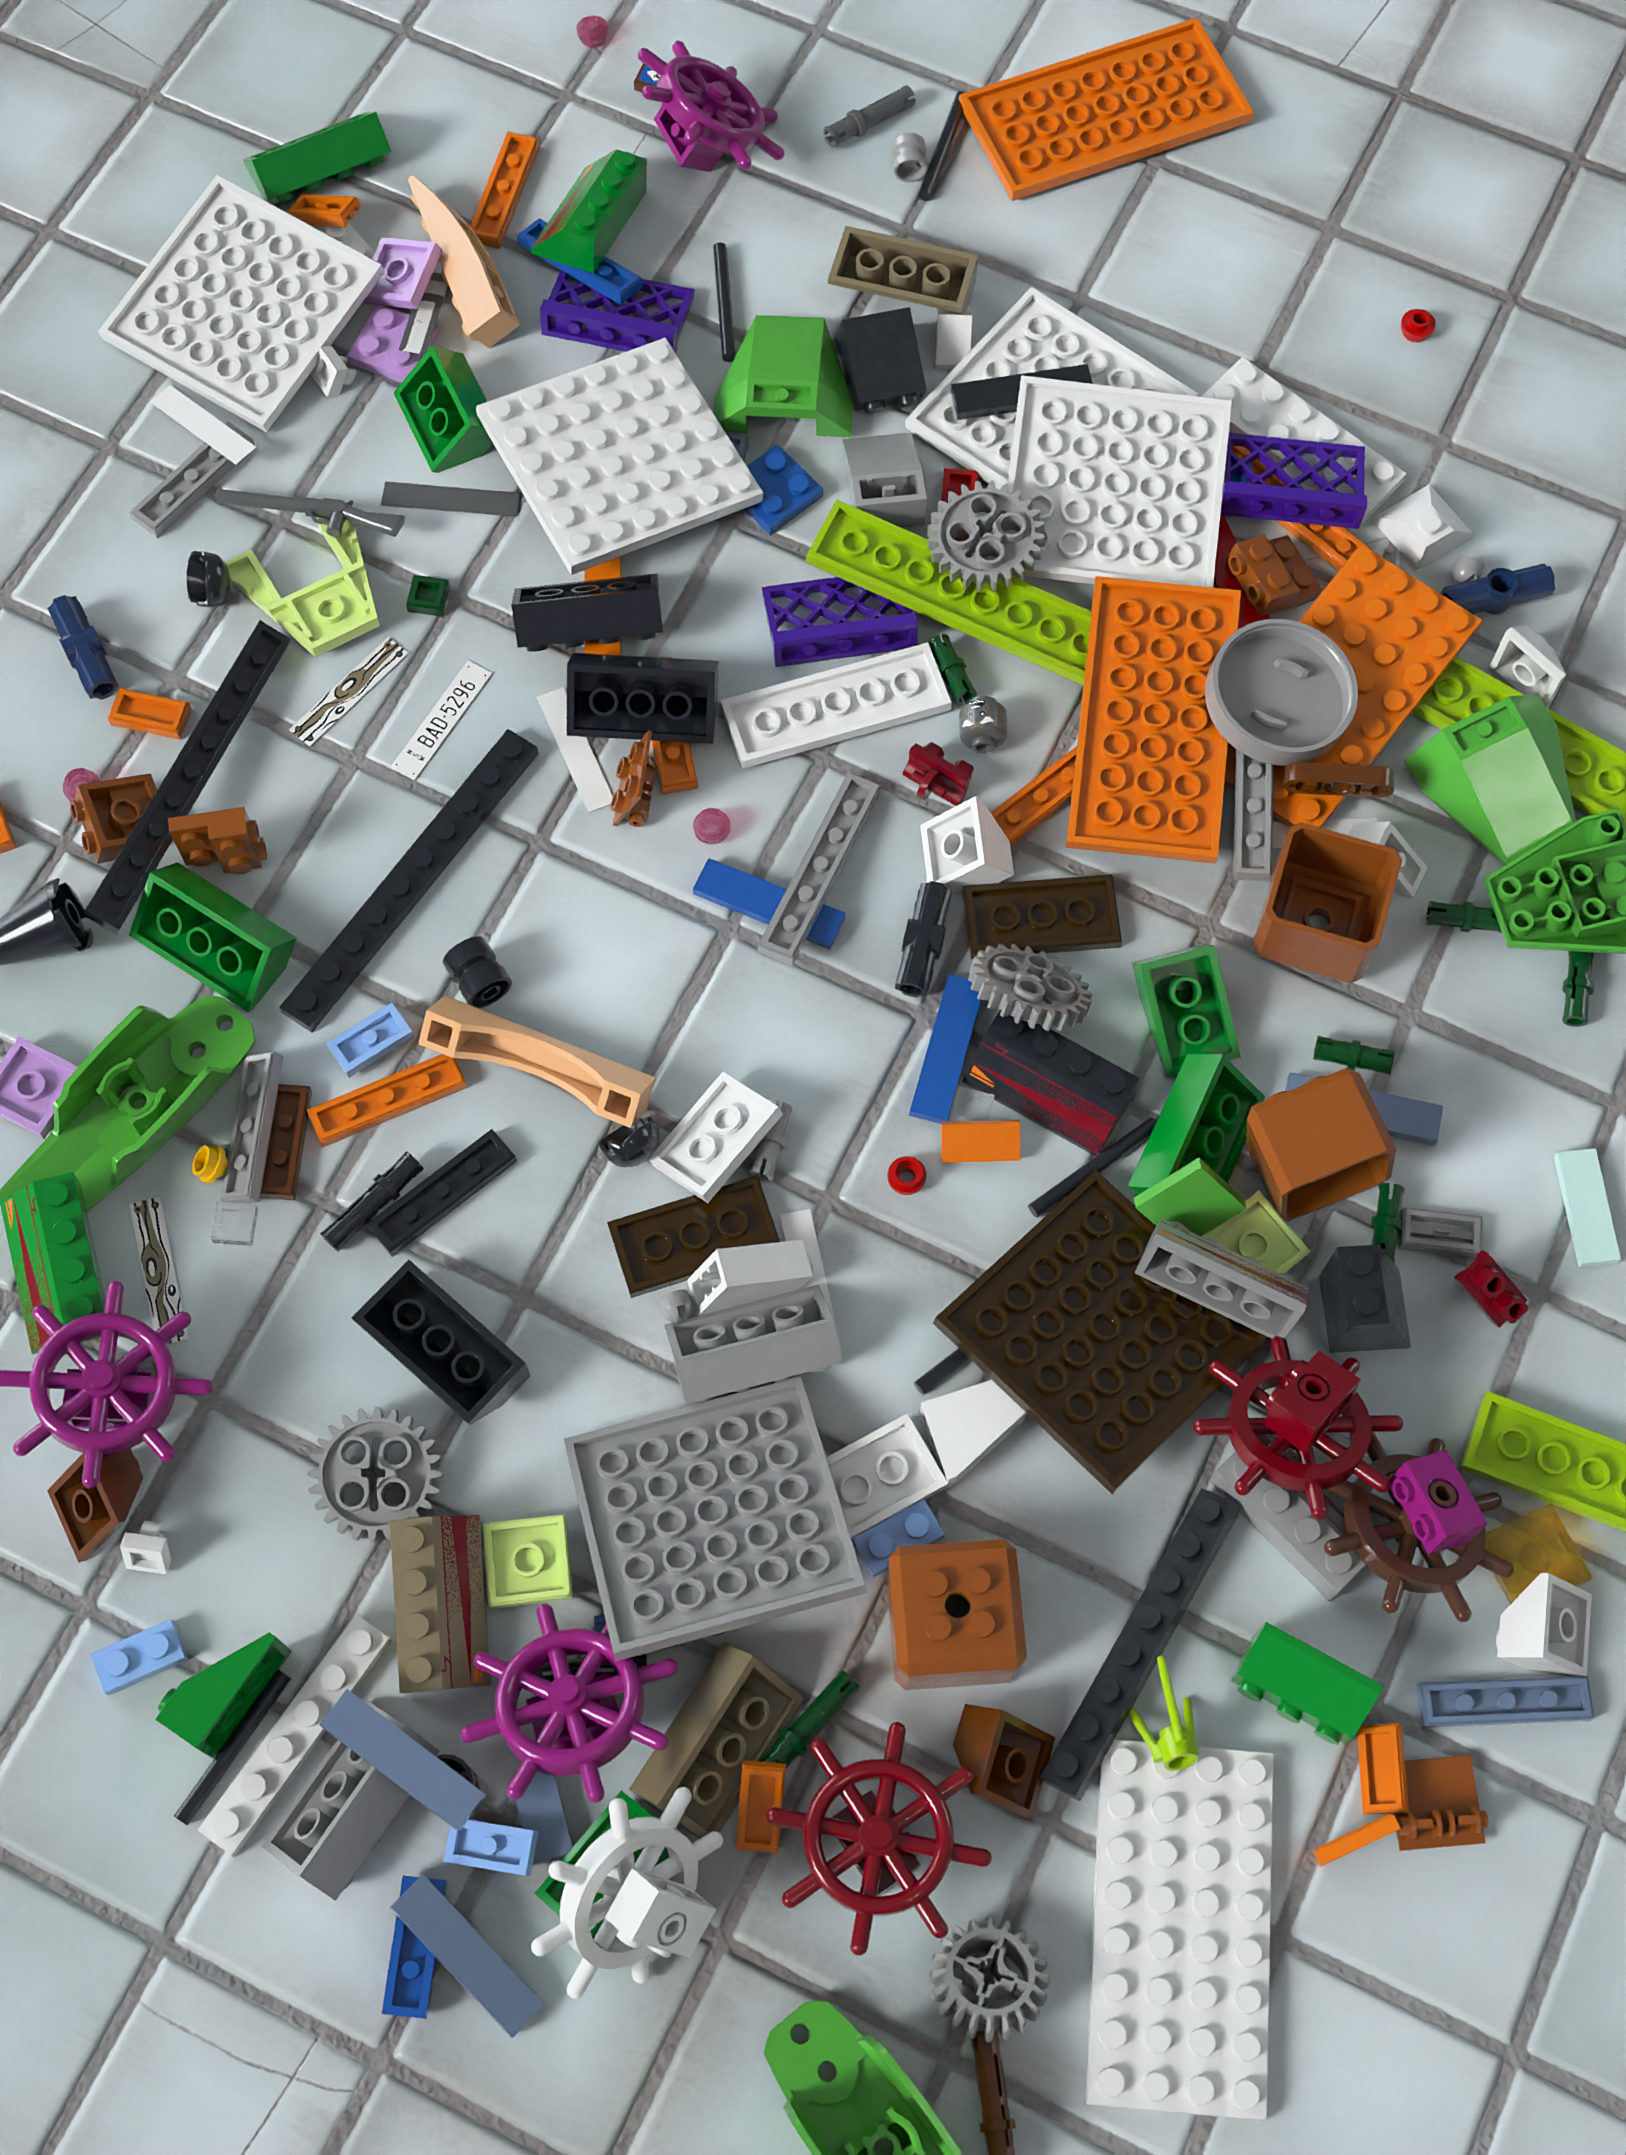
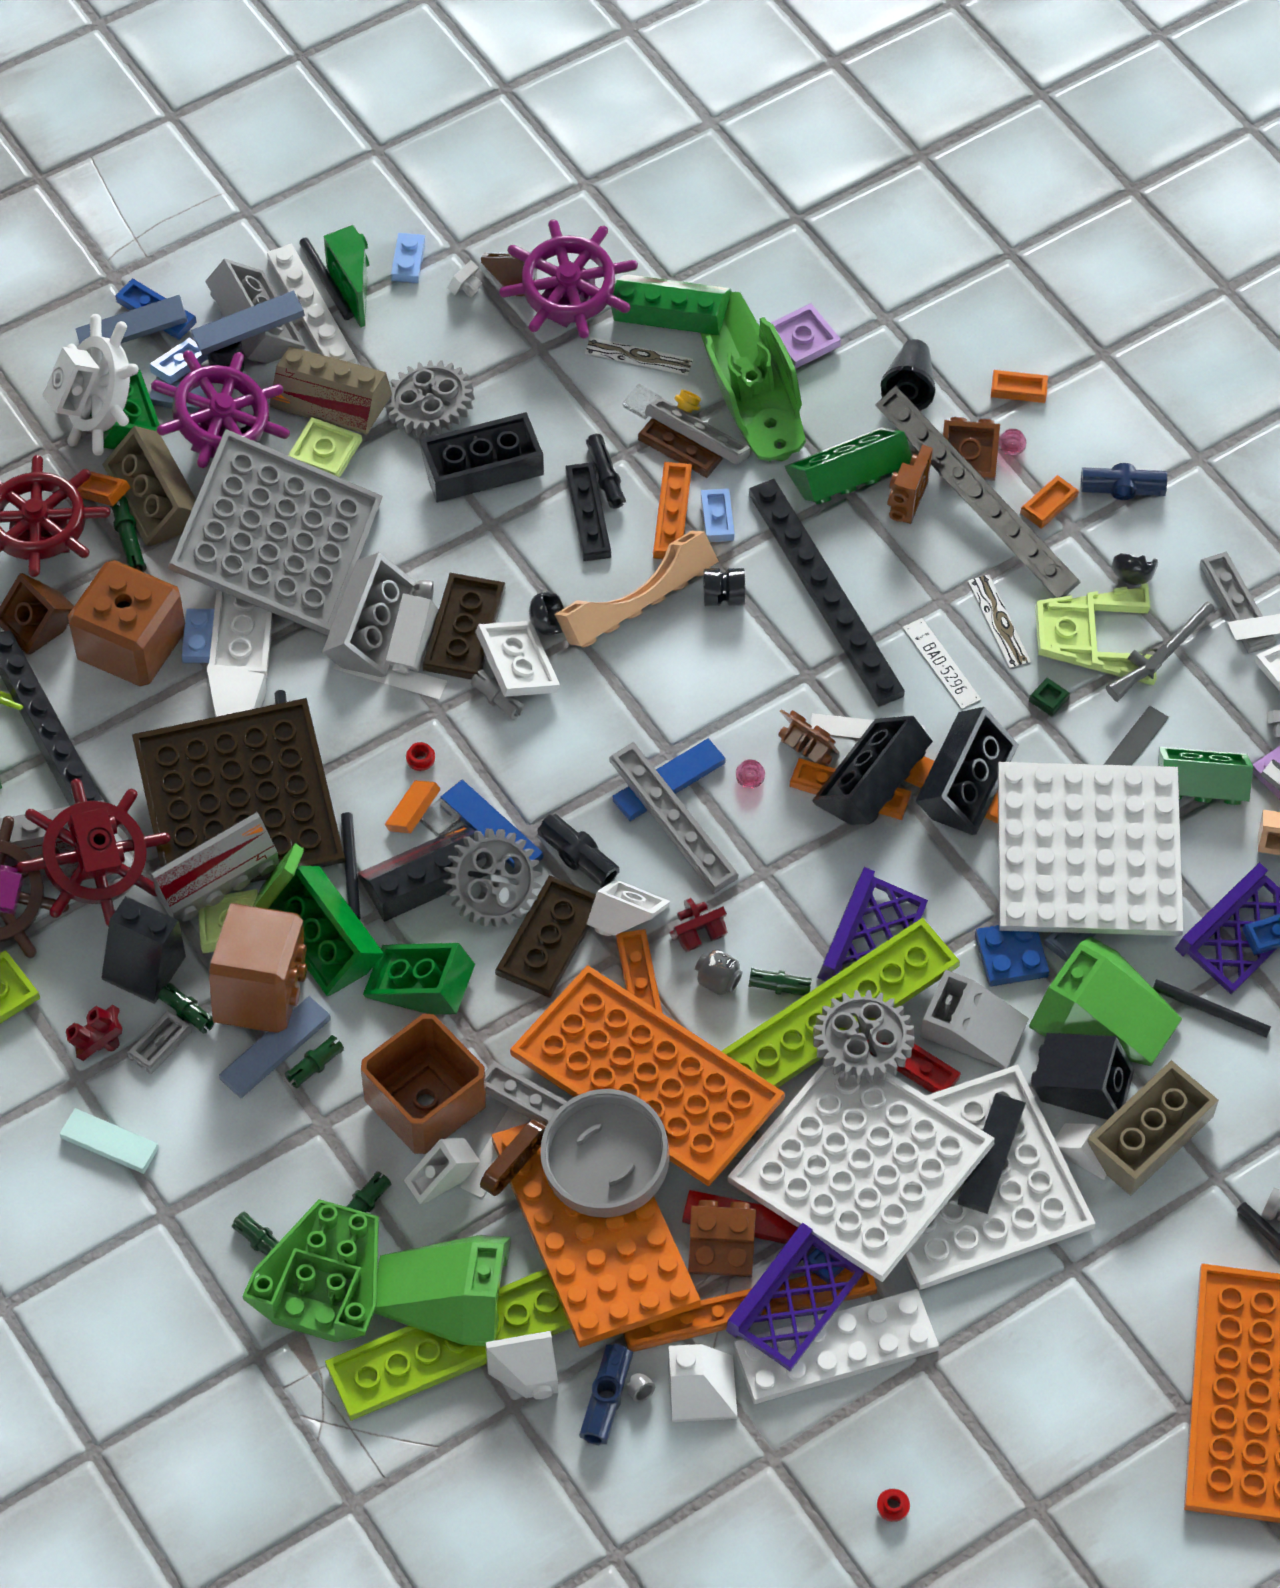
camera: 120 degrees right, 10 degrees down
(835, 705) = (796, 894): white plate -> none

